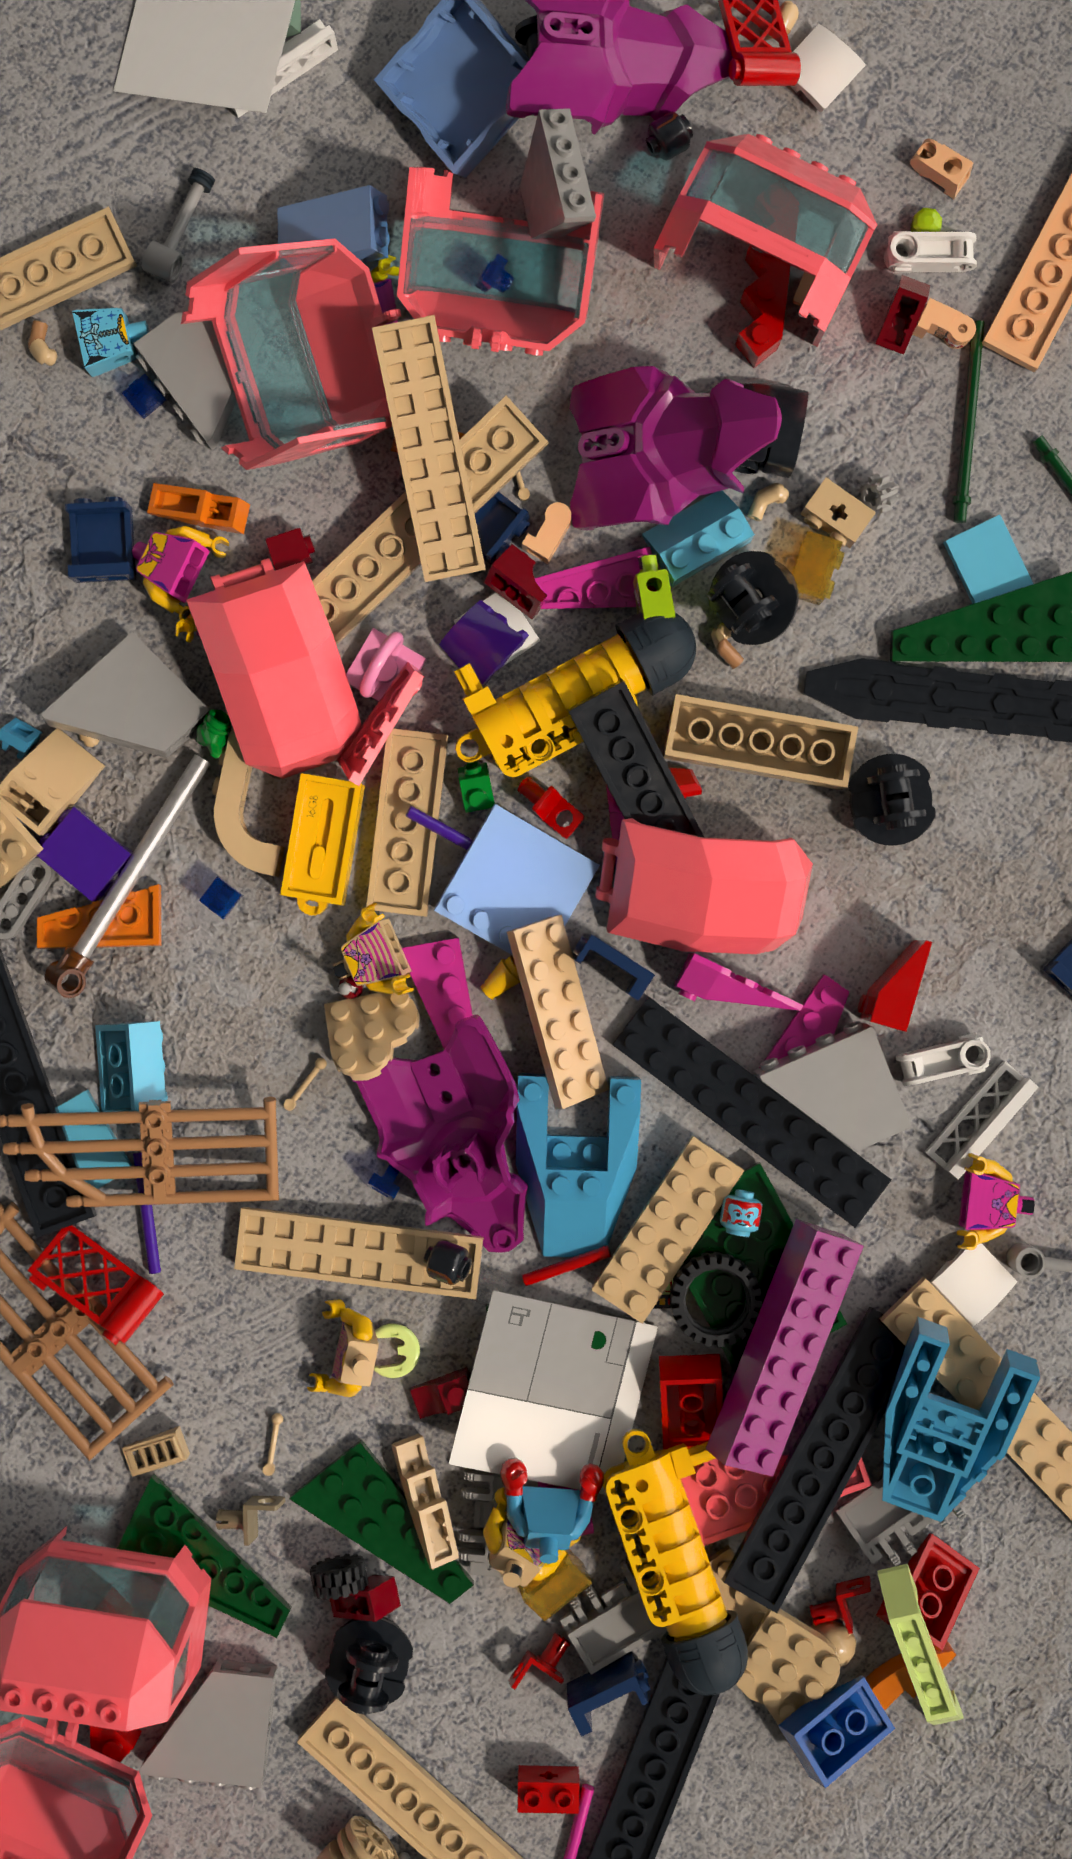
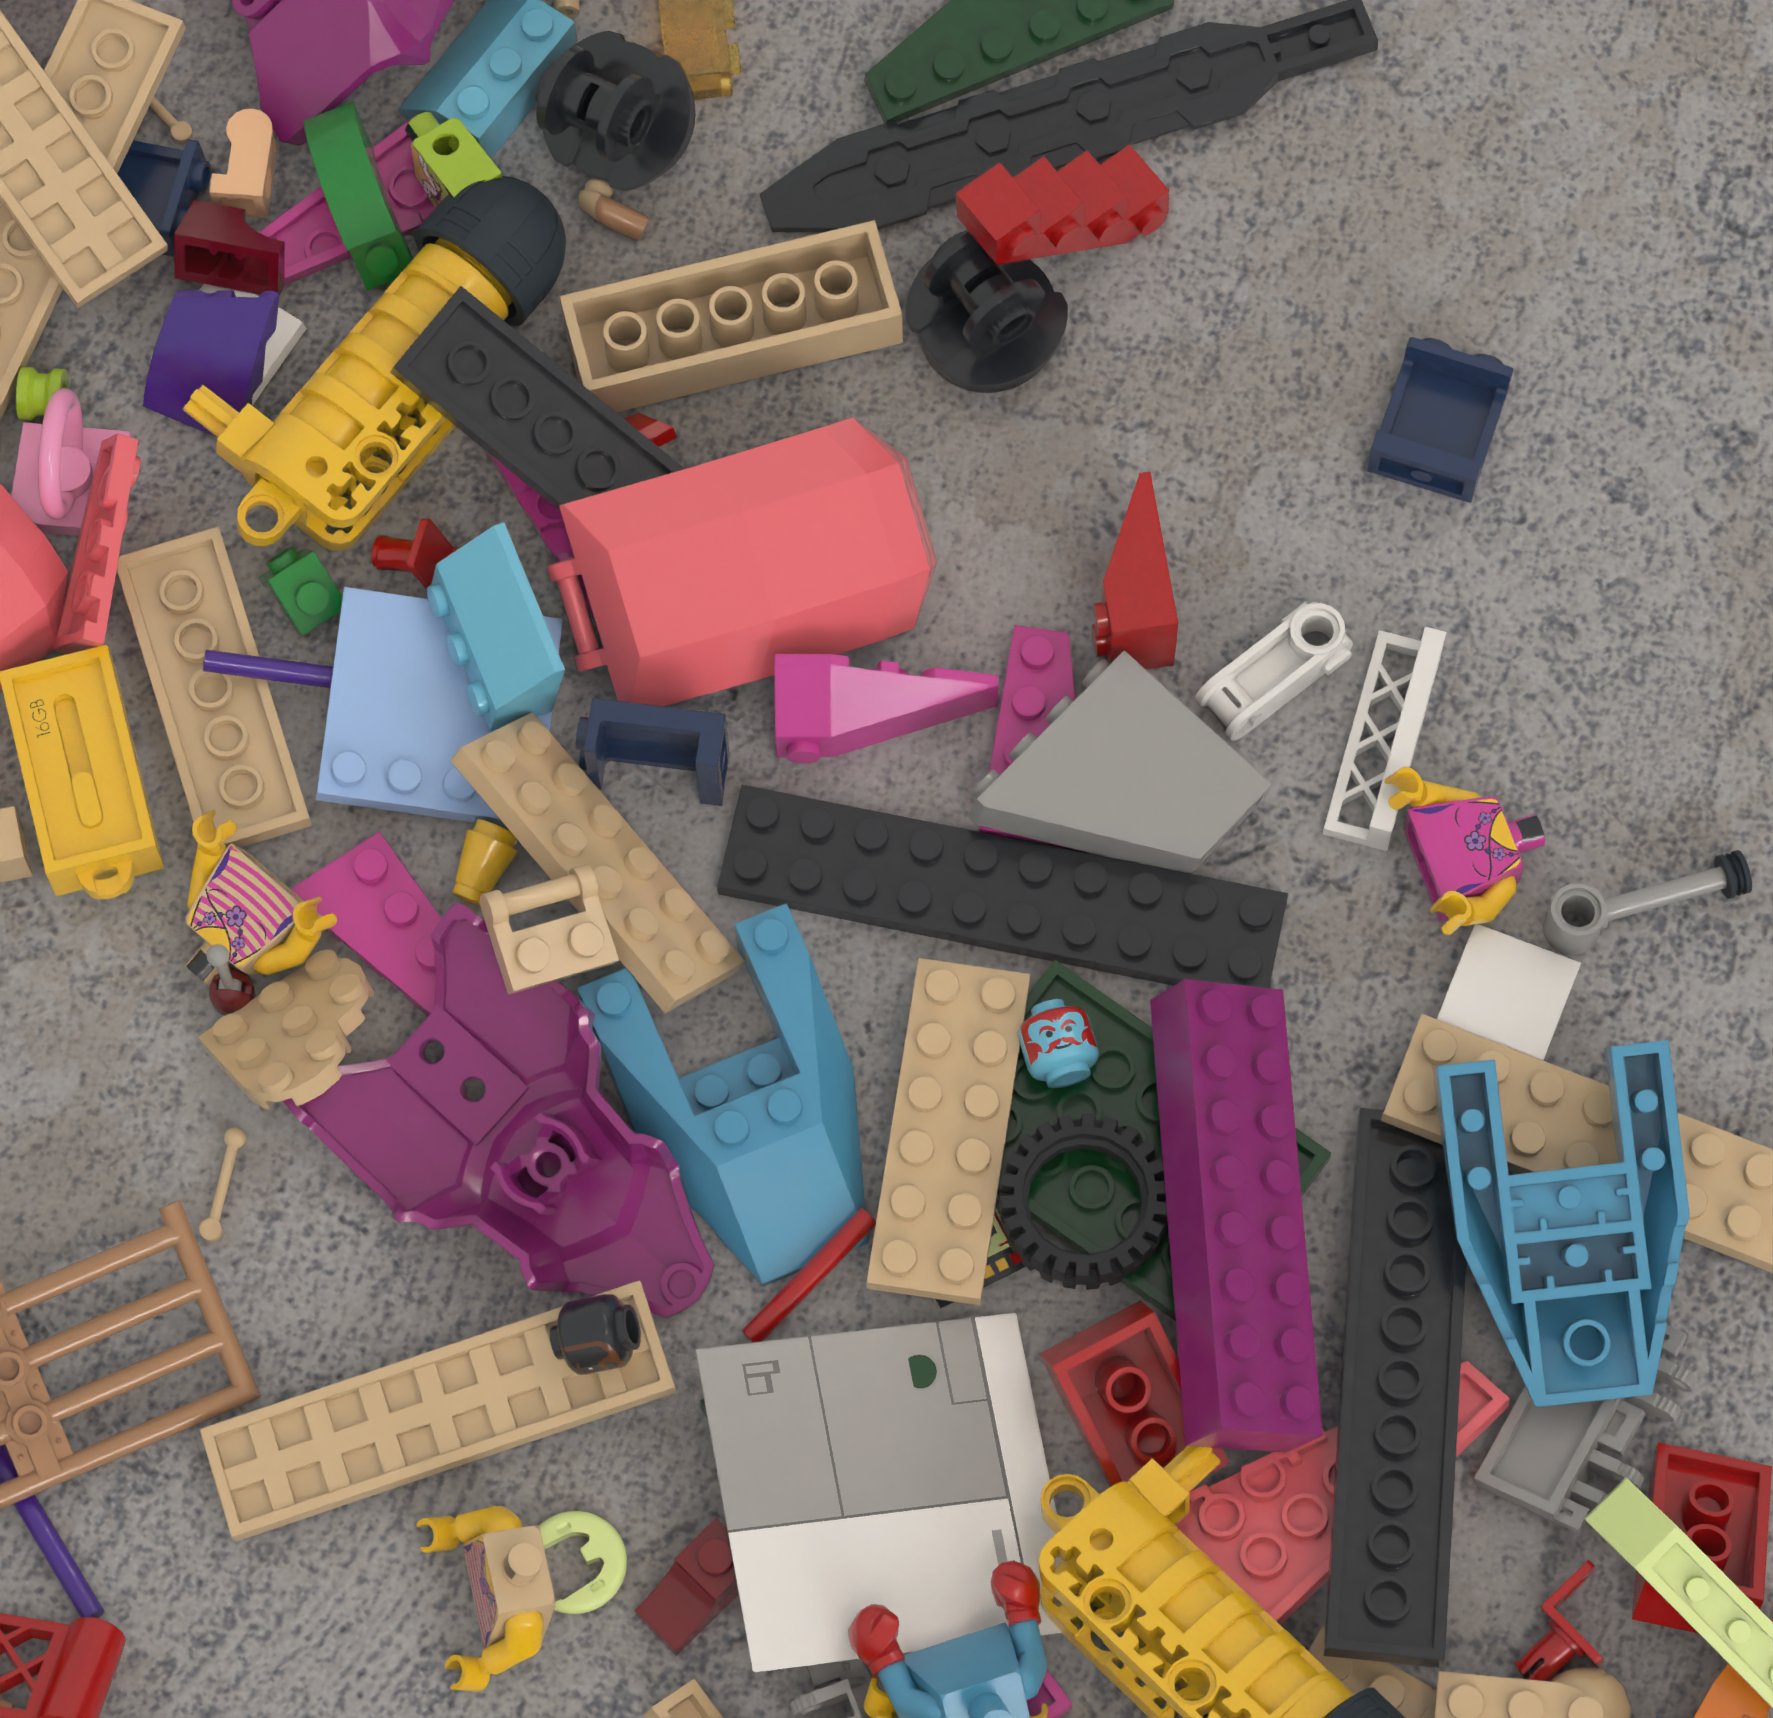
camera: 20 degrees left, 20 degrees down
(384, 1184) = (432, 1279): clear blue tile -> none
(389, 616) = (36, 389): none -> lime wheel
(514, 1060) = (554, 947): none -> tan plate
(560, 868) = (496, 629): none -> medium azure slope
(596, 581) = (357, 195): none -> green arch
(959, 770) = (1064, 209): none -> red brick

